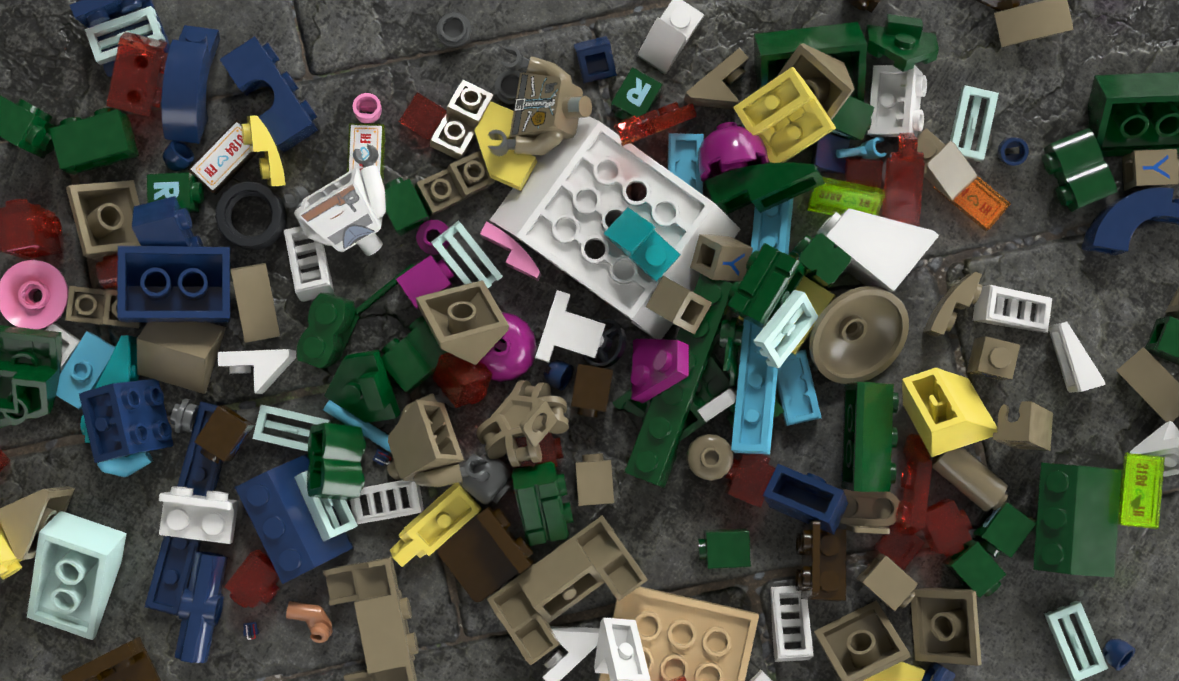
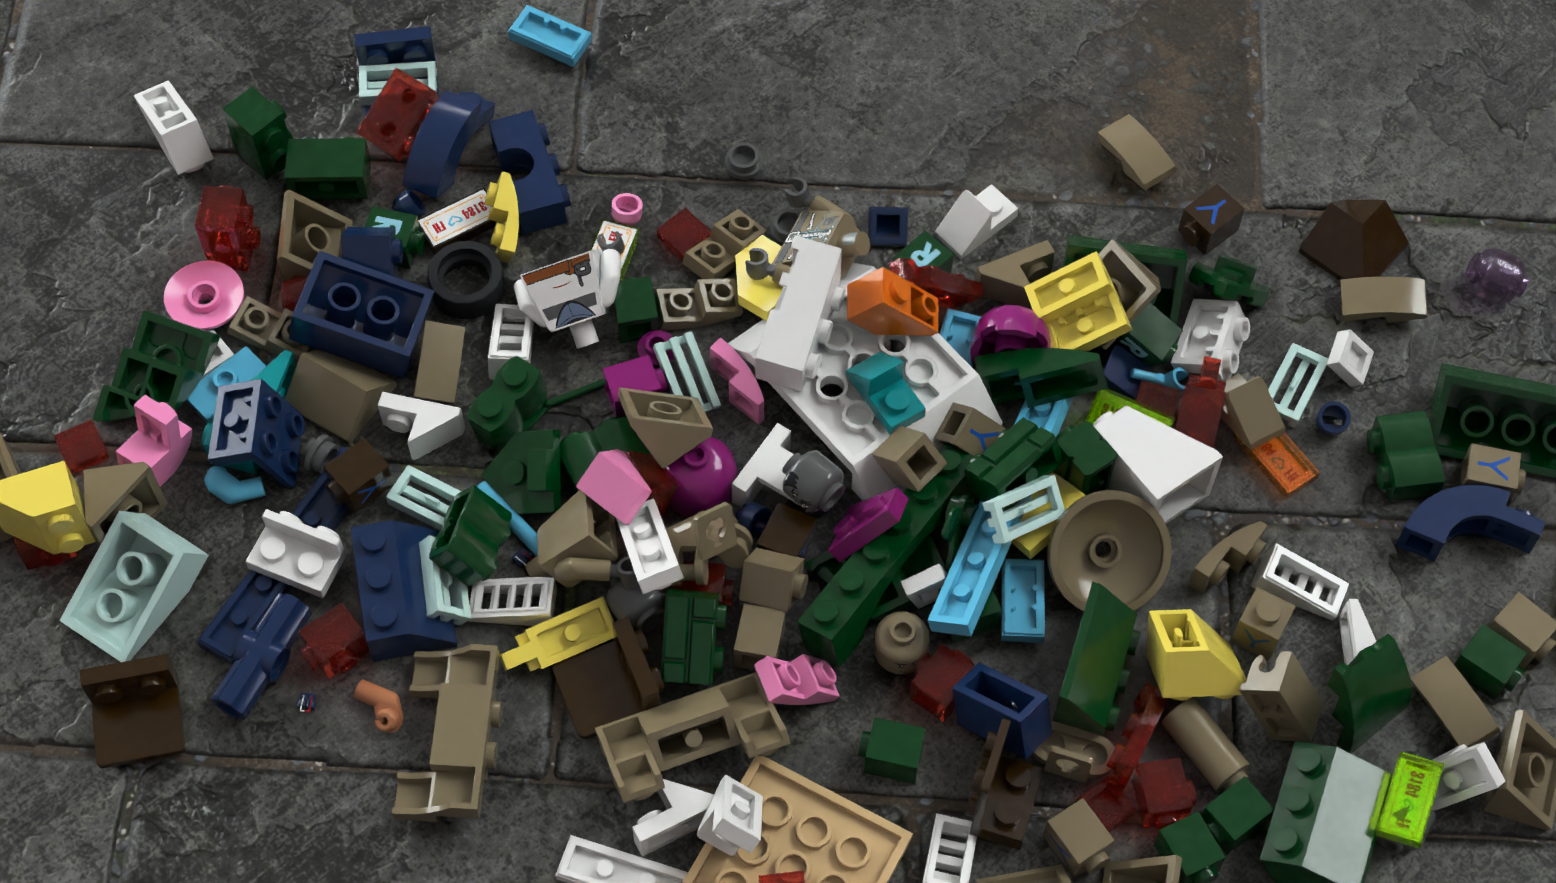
camera: 15 degrees right, 25 degrees down
(45, 450) = (158, 441): none -> bright pink brick
(443, 398) = (615, 485): none -> bright pink slope
(487, 449) = (650, 549): none -> white plate
(554, 200) = (801, 315): none -> white wedge
(593, 435) = (773, 579): none -> dark tan brick
(604, 346) = (813, 481): none -> dark grey head
(627, 164) = (891, 305): none -> orange slope
(635, 514) = (797, 682): none -> bright pink slope
(1016, 88) = (1350, 358): none -> white plate
(1096, 396) = (1370, 692): none -> dark green slope

